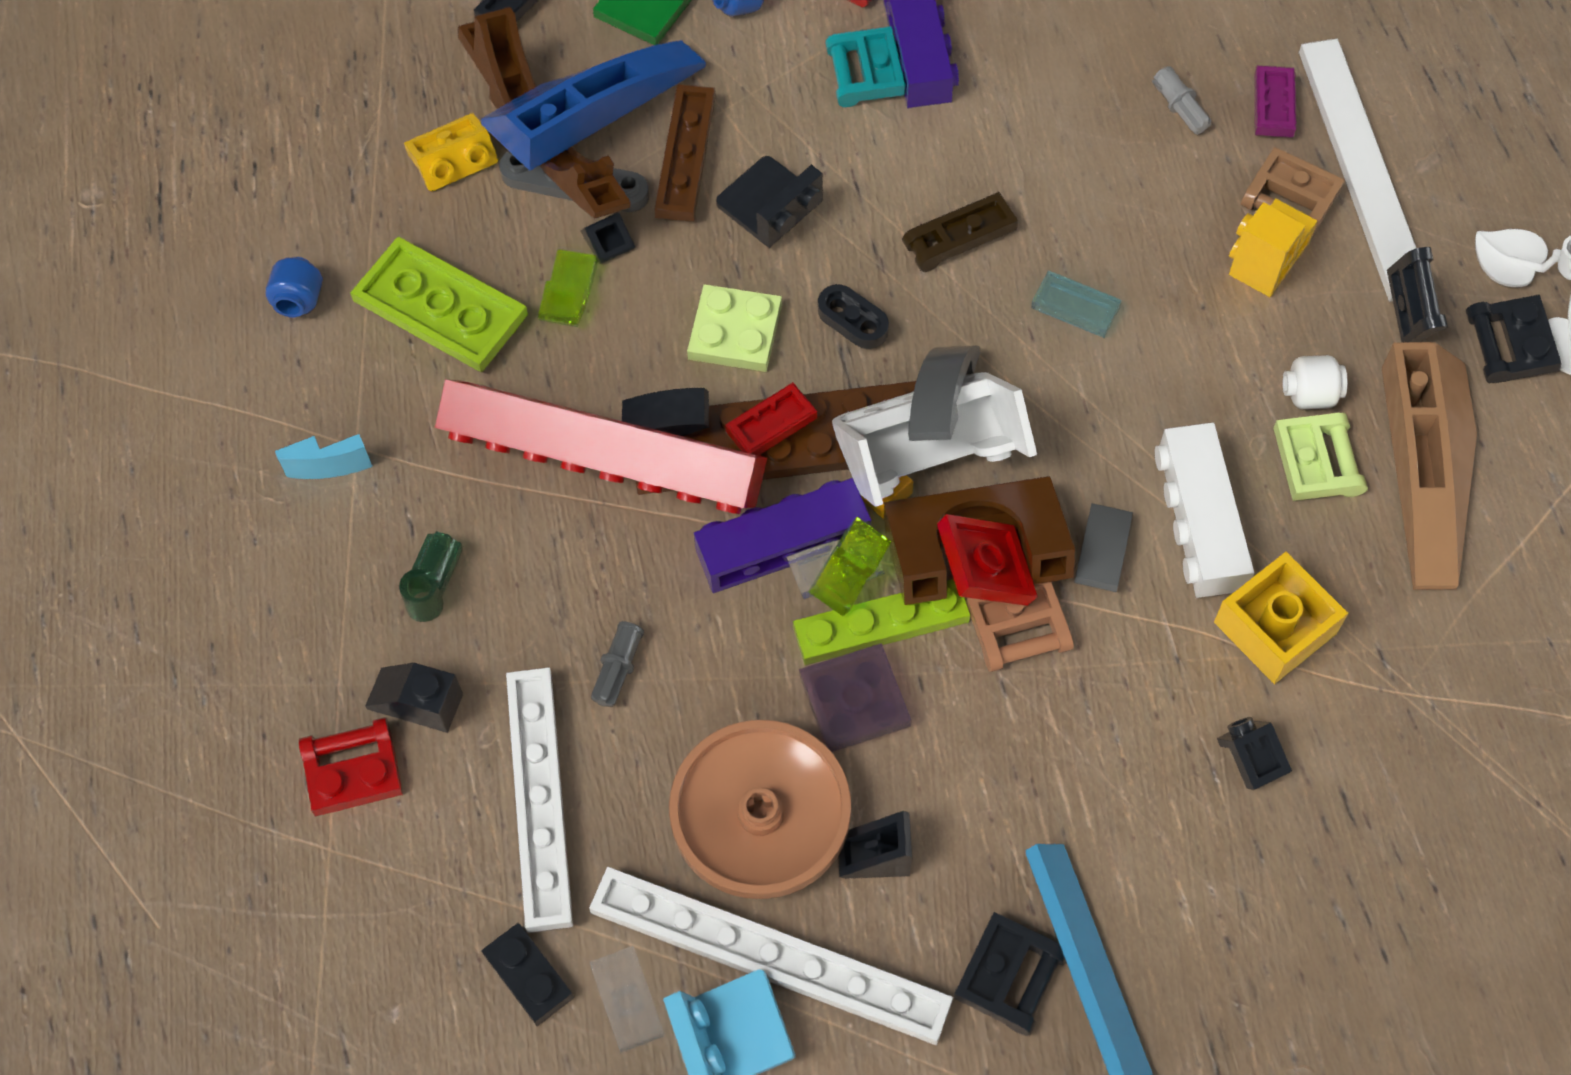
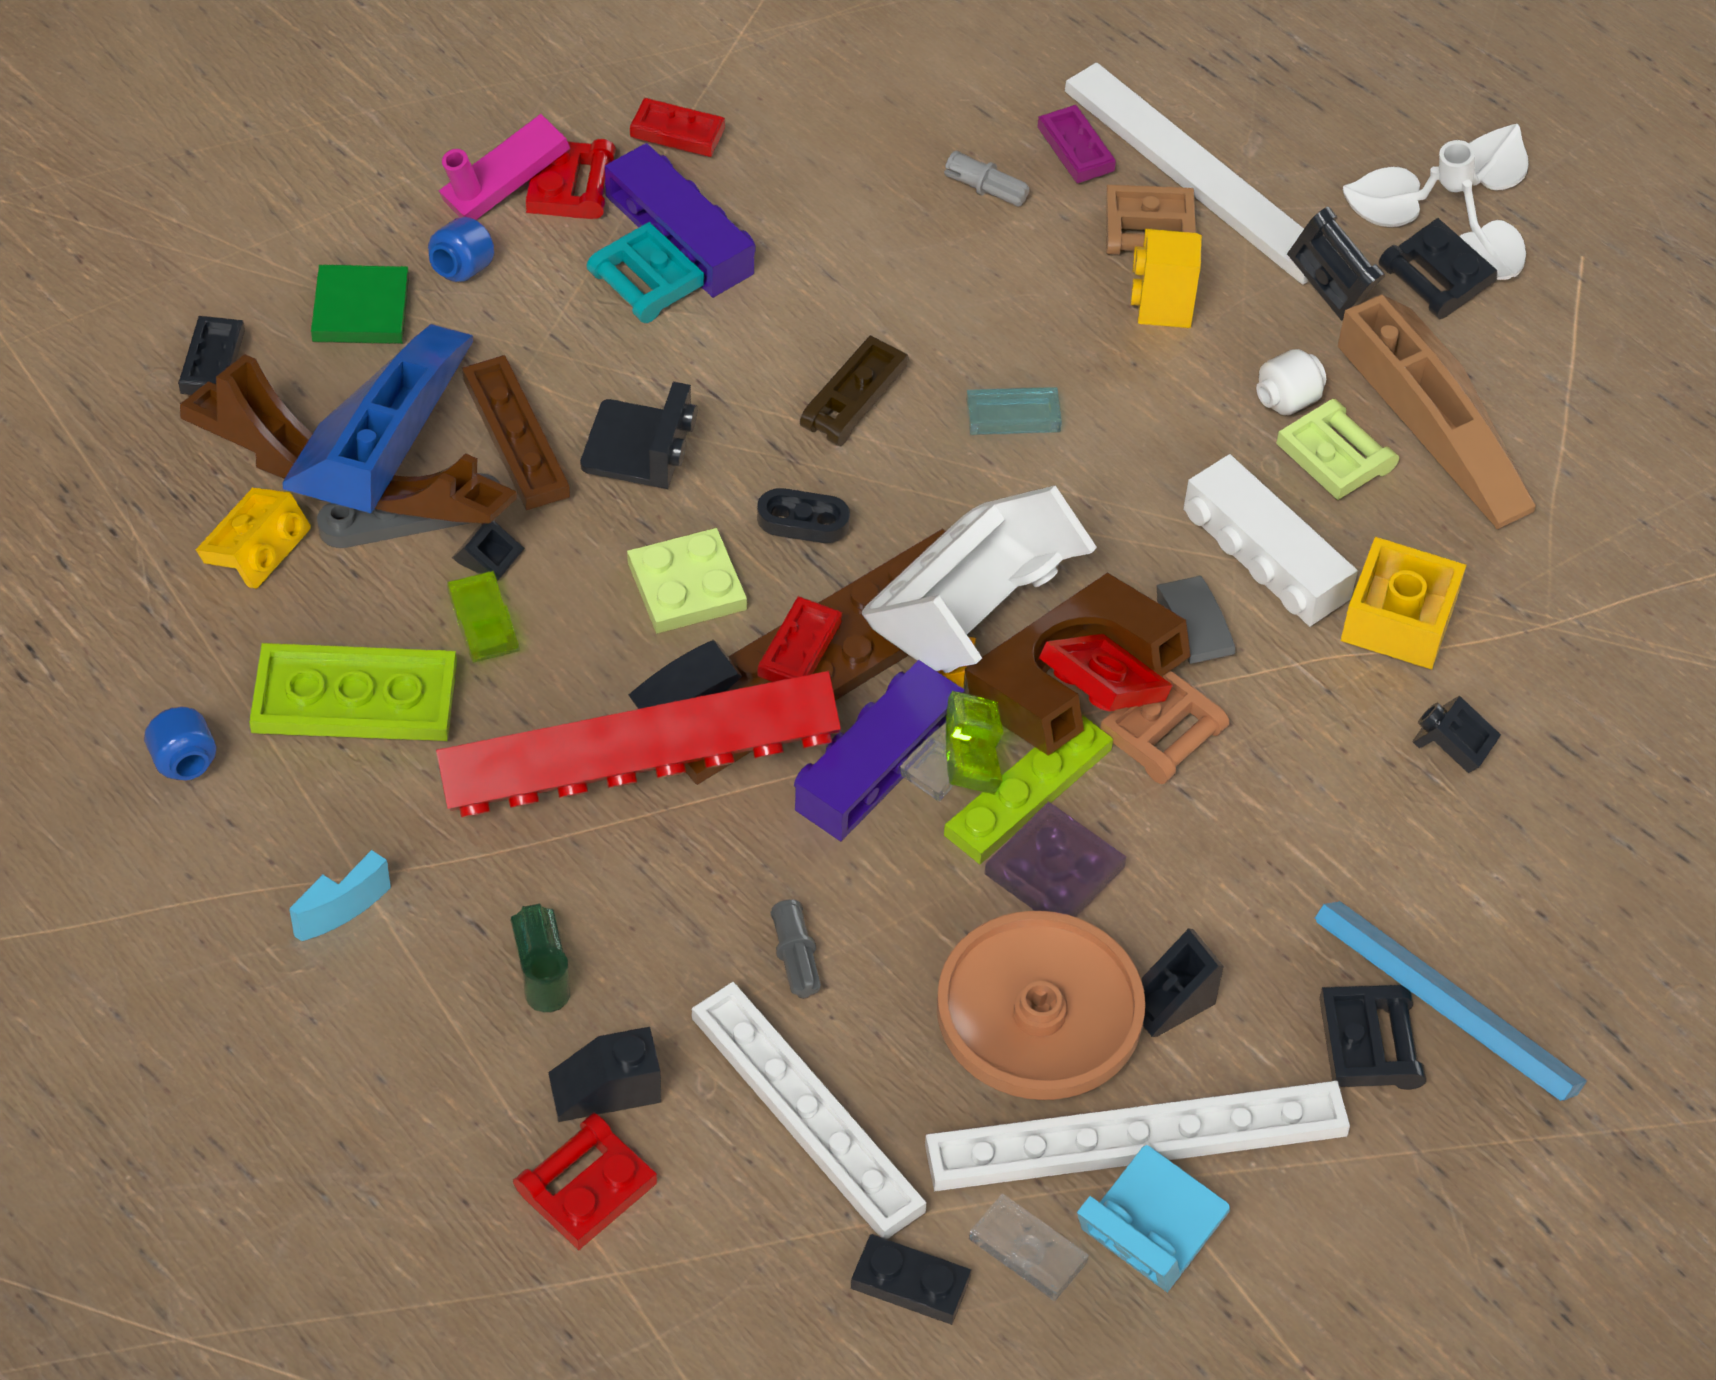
camera: 35 degrees left, 10 degrees down
(937, 390) = (957, 538): dark grey slope -> none

